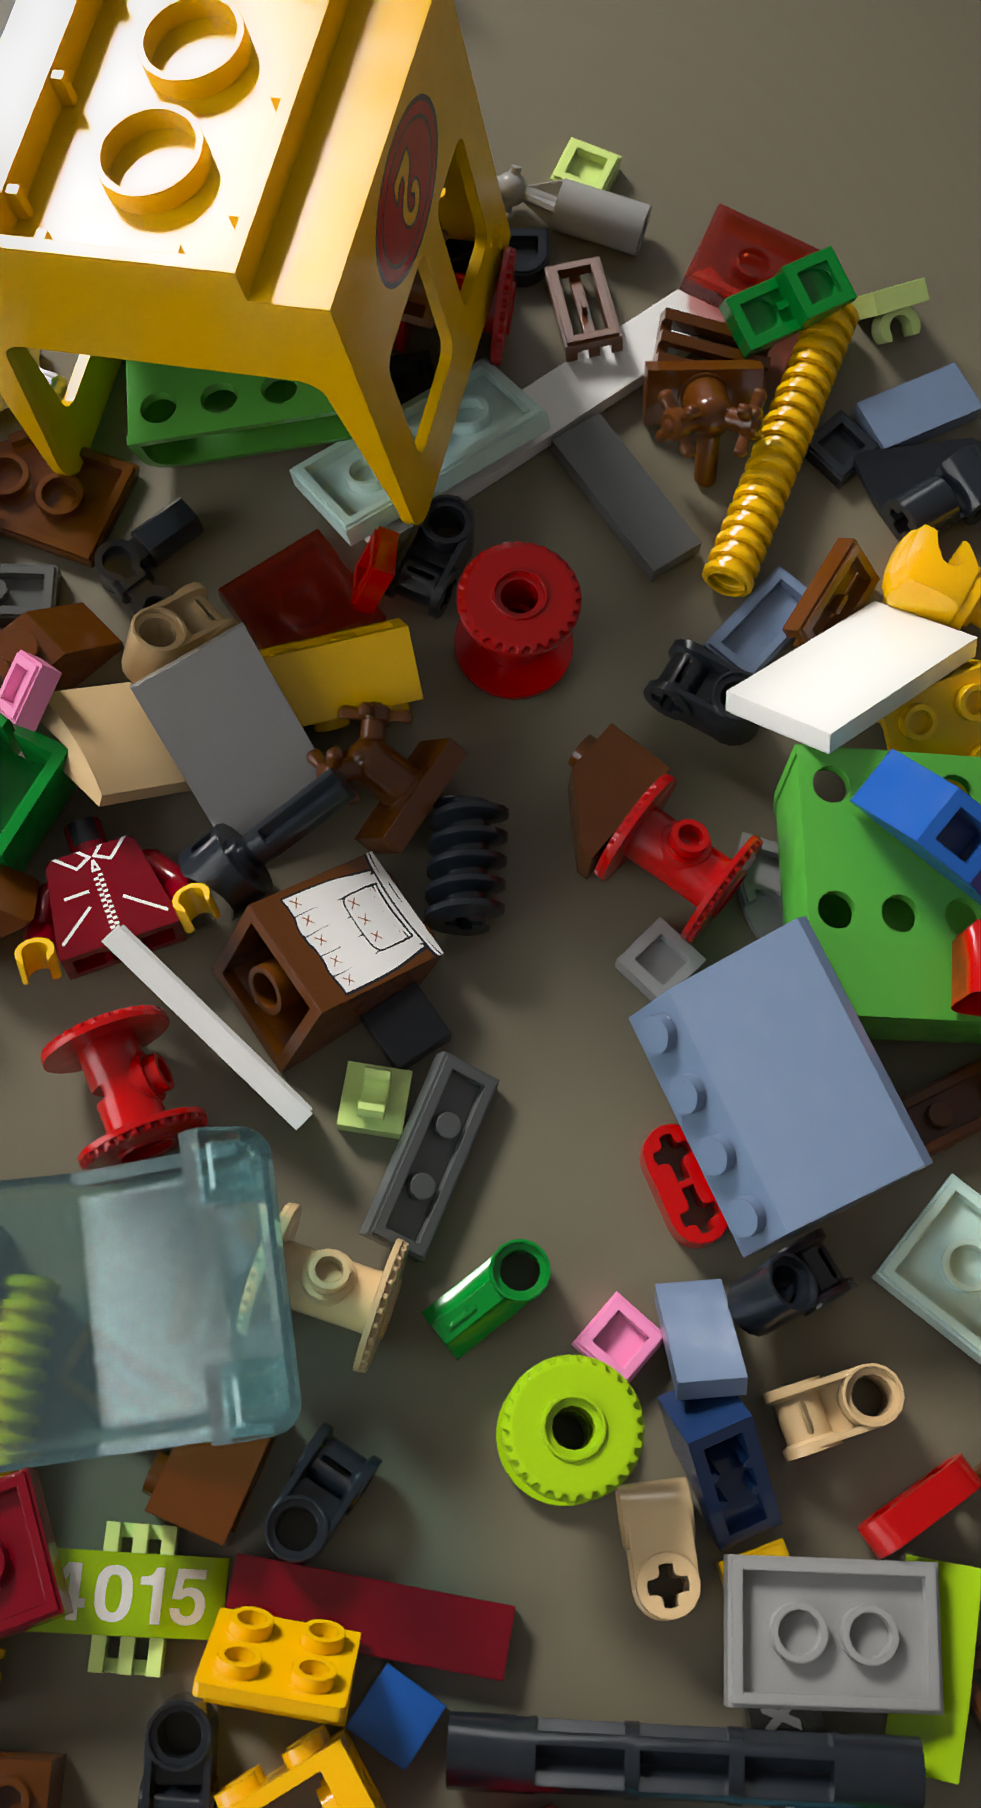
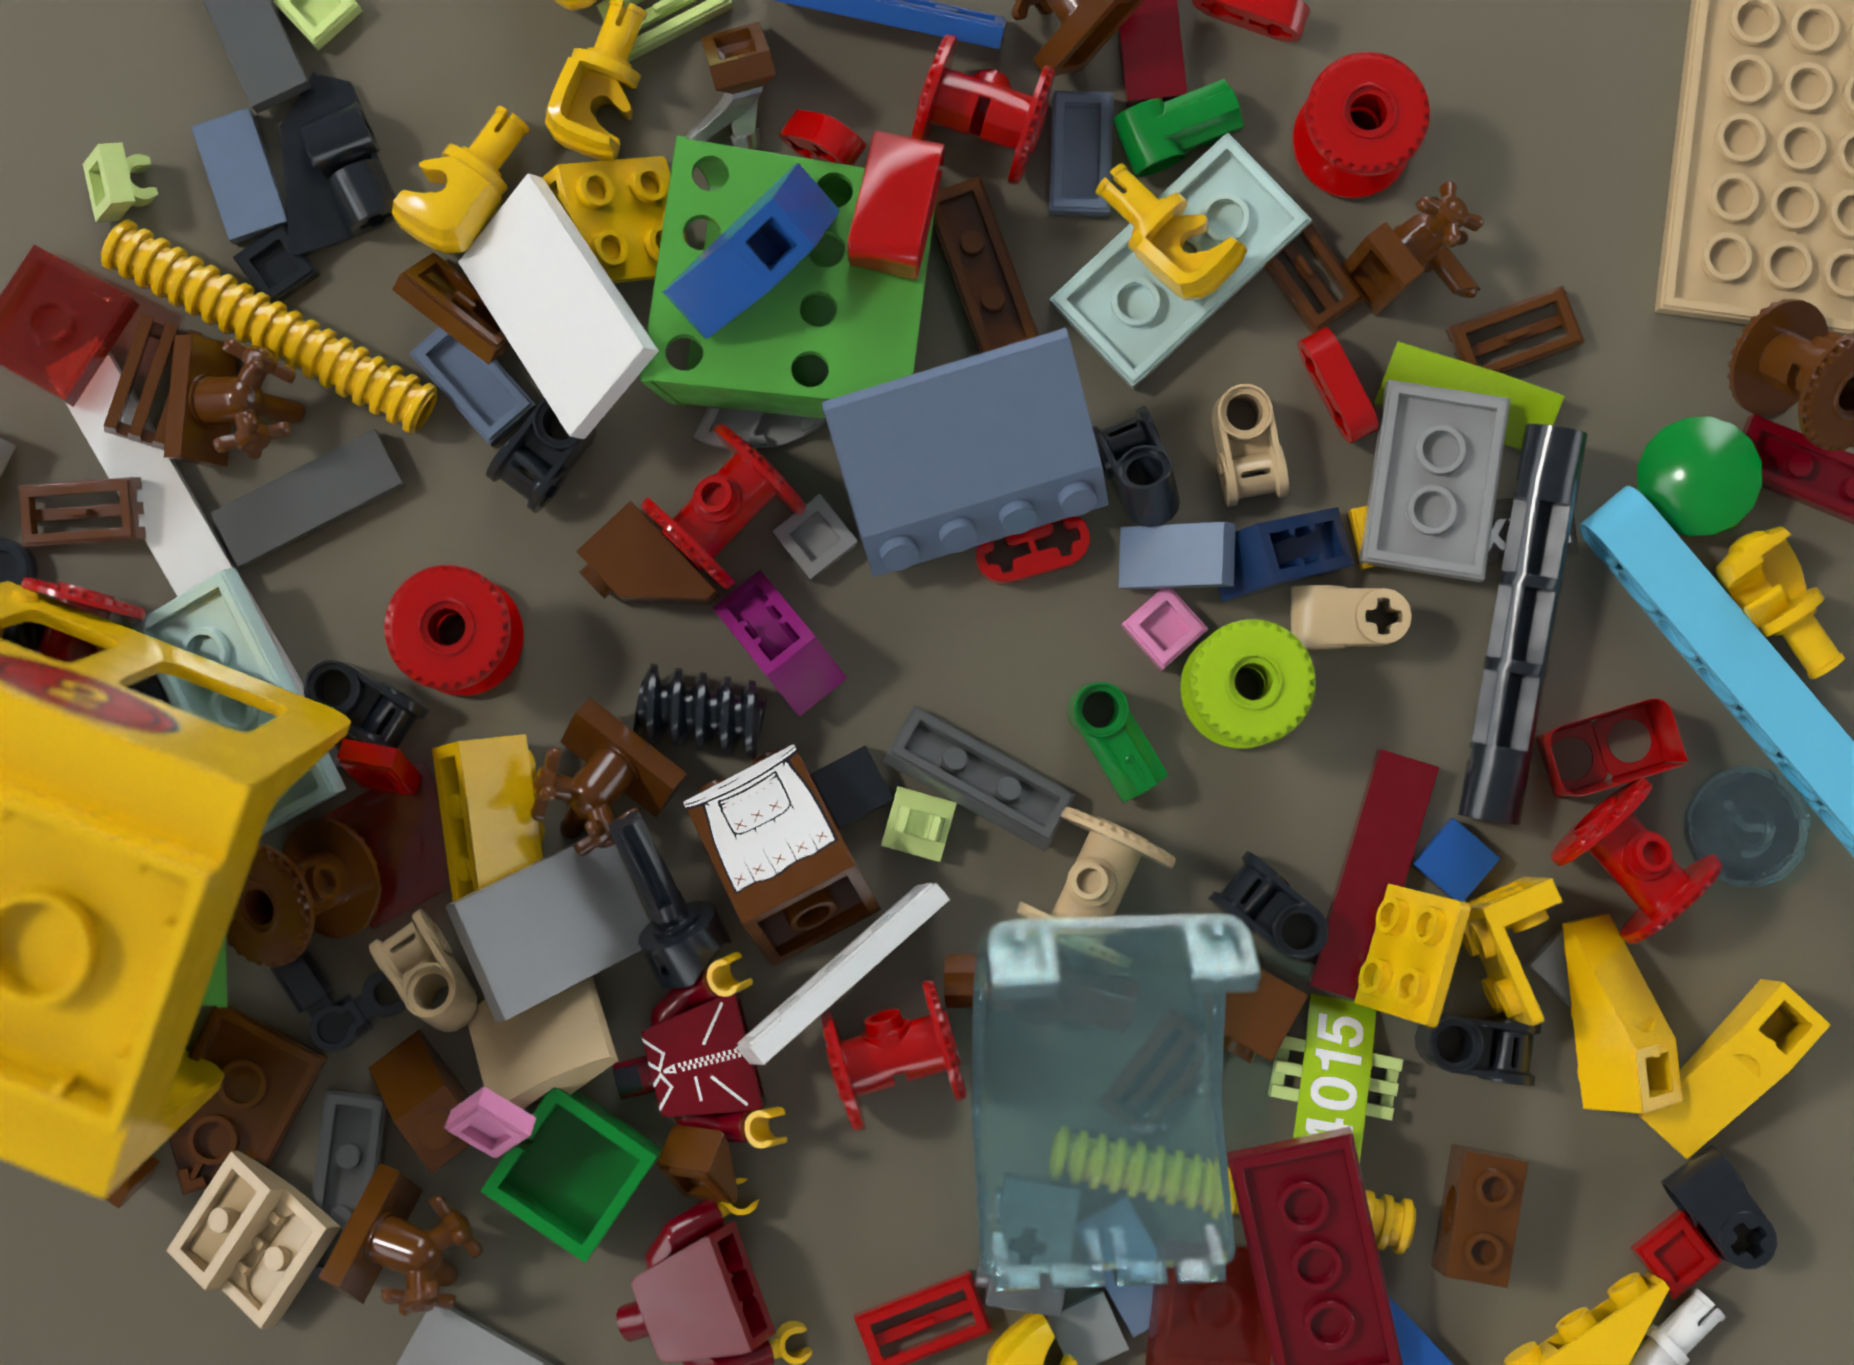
camera: 80 degrees left, 15 degrees up
(259, 536) = (316, 883): none -> reddish brown hose
(543, 934) = (780, 643): none -> magenta arch
(787, 303) = (114, 295): green slope -> none

